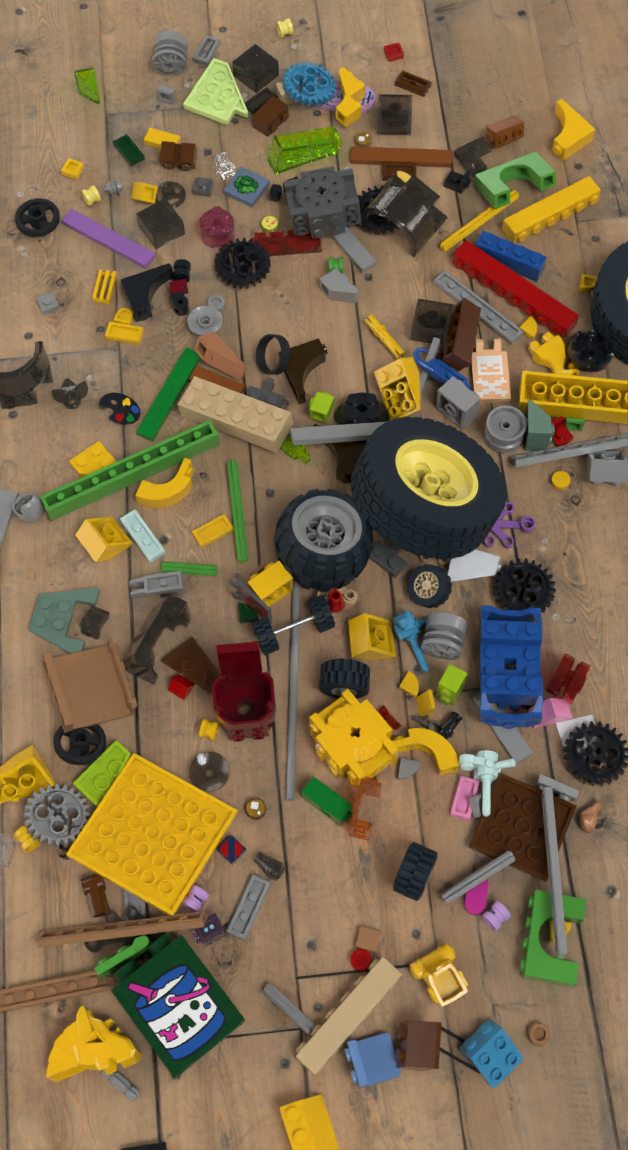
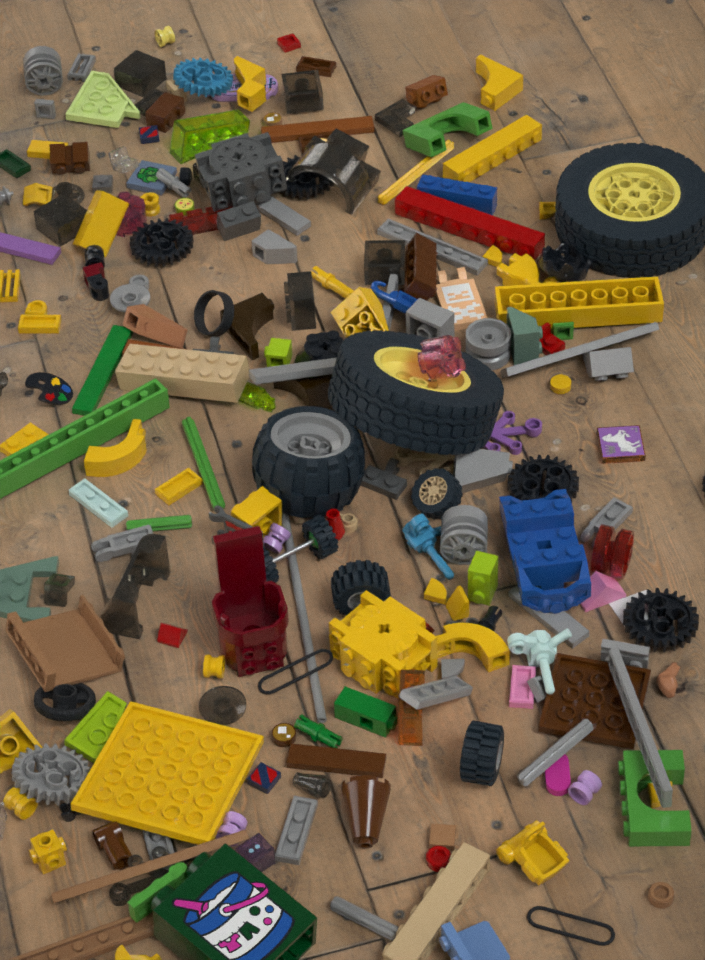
camera: 10 degrees left, 20 degrees down
(45, 898) = (48, 851): none -> yellow brick
(103, 538) = (52, 509): yellow slope -> none
(141, 288) = (51, 279): black arch -> none
(192, 236) = (101, 221): none -> yellow slope
(193, 664) = (183, 610): reddish brown wing -> none
(237, 213) = (152, 204): none -> yellow wheel
(252, 137) = (149, 134): none -> dark blue tile
(263, 198) = (173, 182): none -> light grey axle
(280, 753) = (298, 678): none -> black piece
(284, 813) = (318, 732): none -> green pin
(285, 601) = (275, 538): none -> lavender wheel
(294, 844) = (336, 760): none -> reddish brown tile
(308, 905) = (365, 807): none -> reddish brown cone
(312, 252) = (238, 221): none -> dark grey brick
(336, 263) = (262, 227): bright green wheel -> none
(349, 353) = (300, 301): none -> clear smoke brick
(371, 637) = (383, 548): yellow slope -> none
(388, 800) = (436, 692): none -> light grey tile
(418, 1045) = (524, 919): reddish brown slope -> none
(456, 462) = (441, 358): none -> clear pink brick
(457, 182) = (385, 143): black bracket -> none
(491, 1052) = (612, 917): dark azure bracket -> none
(571, 638) = (612, 514): none -> light grey hinge
(600, 556) = (621, 444): none -> tile

